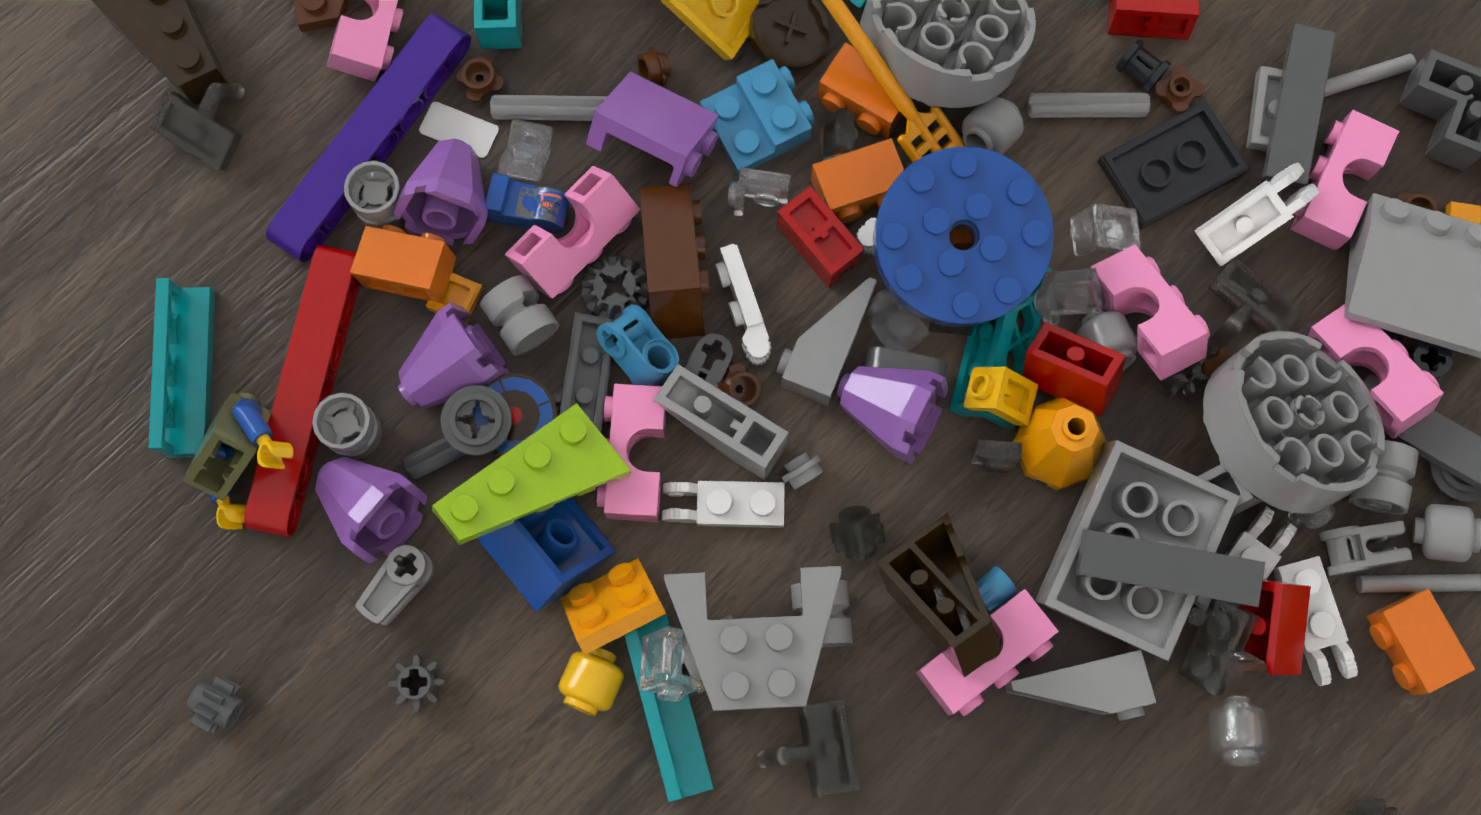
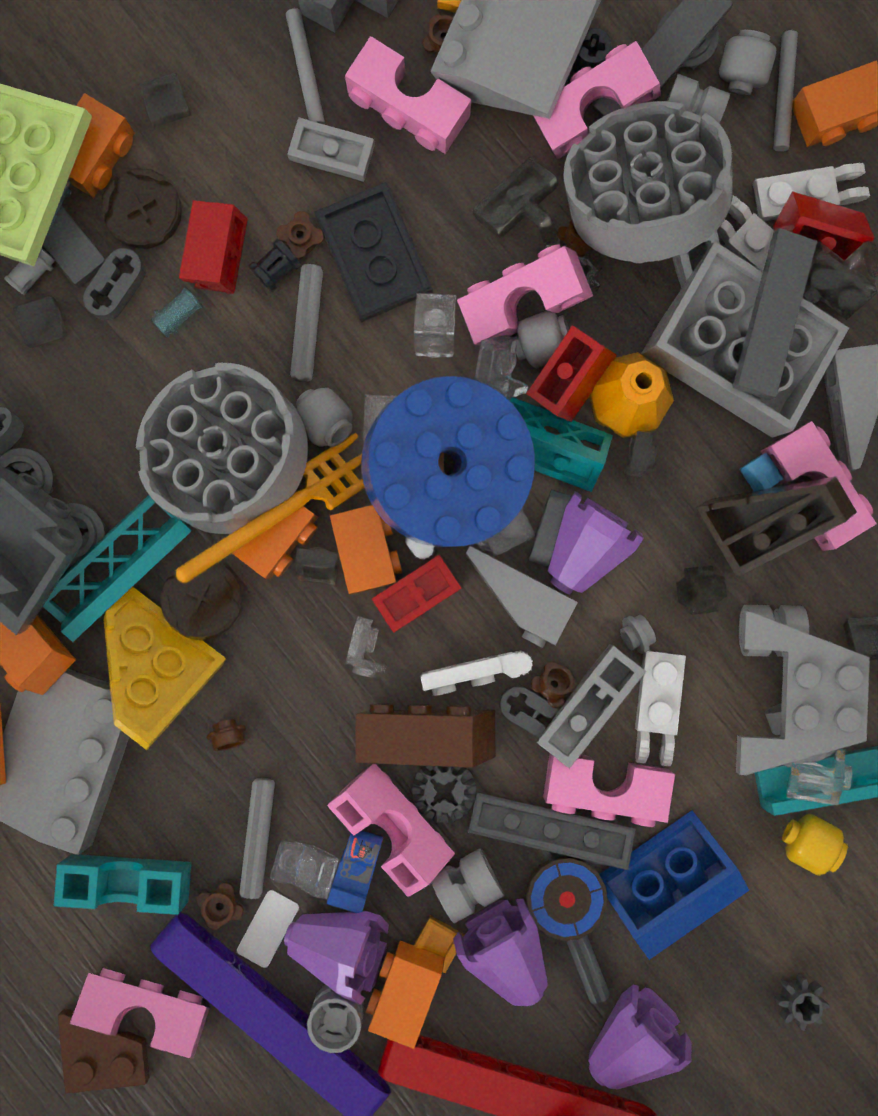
camera: 85 degrees left, 10 degrees up
(347, 426) = (561, 1056): light grey wheel -> none
(393, 587) = (709, 1017): light grey piece -> none
(463, 405) = (585, 951): dark grey gear -> none
(546, 468) = (634, 884): lime wing -> none
(611, 605) = (753, 821): light orange plate -> none
(638, 346) = (507, 777): dark azure piece -> none
(655, 123) = (294, 741): medium lavender panel -> none
(760, 116) = (287, 639): dark azure plate -> none
(1001, 393) = (590, 444): yellow bracket -> none
(1254, 216) = (438, 182): white hinge -> none
(1299, 102) = (333, 125): dark grey tile -> none
(1349, 551) = (752, 151): light grey piece -> none

